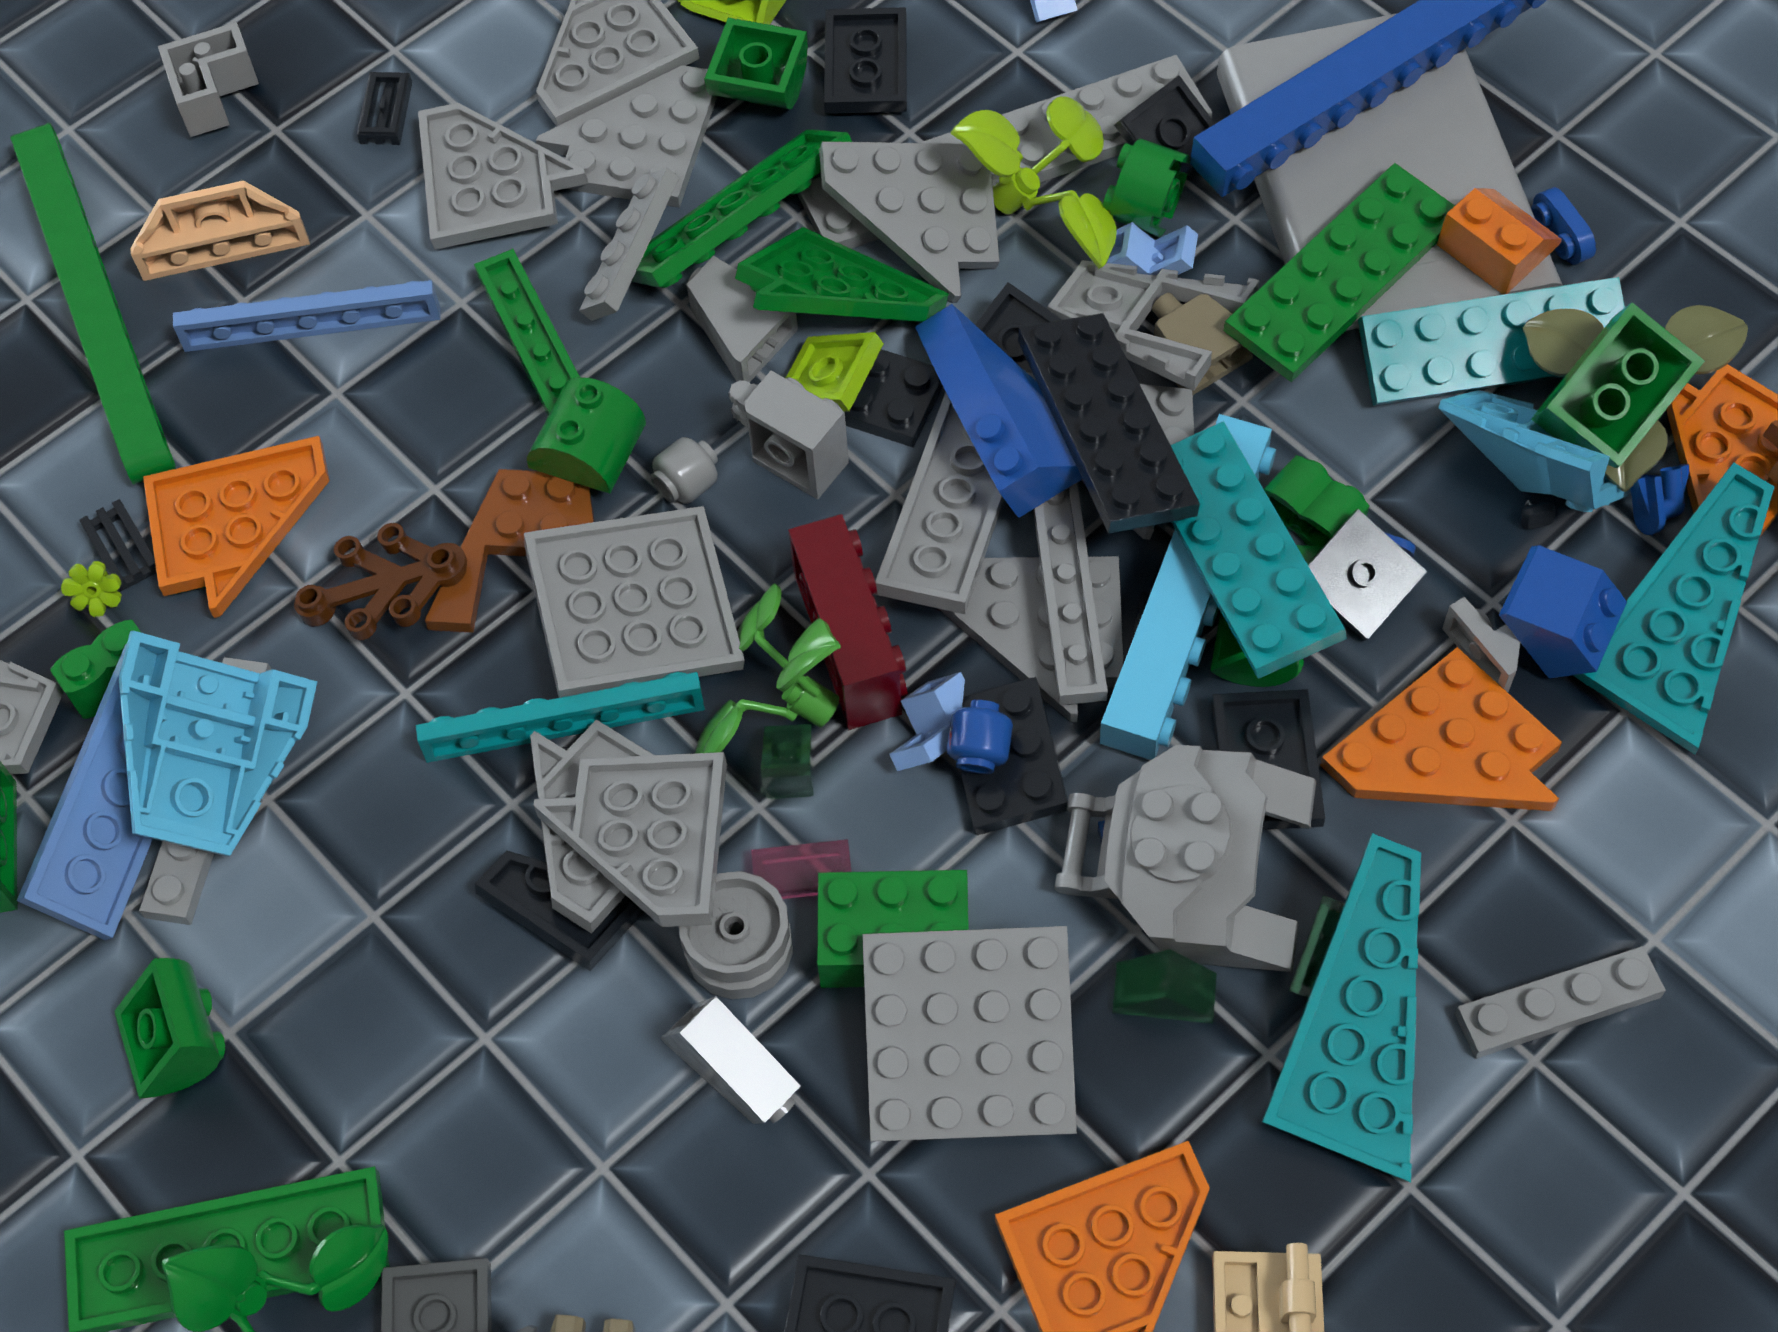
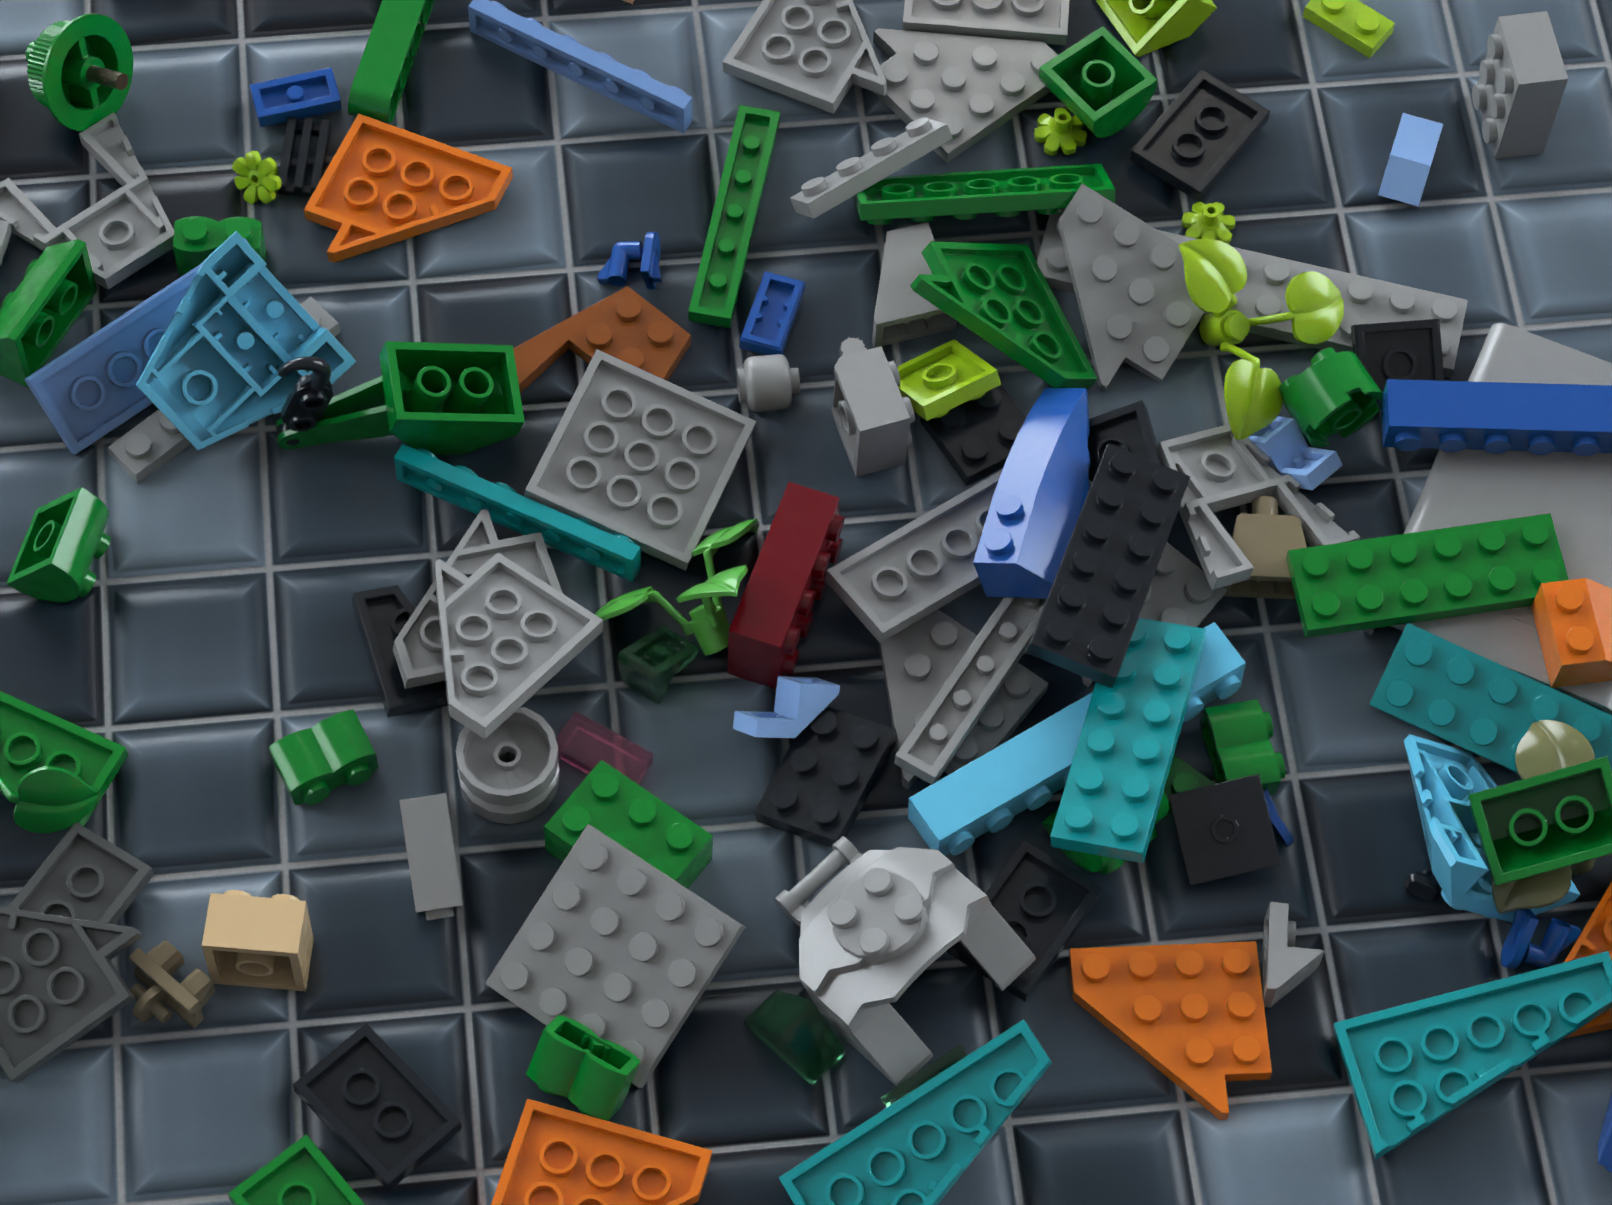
camera: 30 degrees right, 0 degrees up
(72, 498) = (295, 96): none -> blue plate
(388, 579) = (520, 330): reddish brown plant -> none
(406, 667) = (428, 397): none -> green slope
(475, 460) = (617, 266): none -> blue piece
(564, 1046) = (324, 757): none -> green brick
(588, 434) = (710, 305): green brick -> none
(646, 1251) = (258, 940): none -> tan brick
(658, 431) = (772, 314): none -> blue plate
(751, 125) = (1060, 132): none -> lime plant
(928, 122) = (1208, 222): none -> lime plant
(979, 737) = (807, 744): blue head -> none
(1023, 1151) = (582, 1068): none -> green brick
(1562, 612) = (1355, 969): blue slope -> none

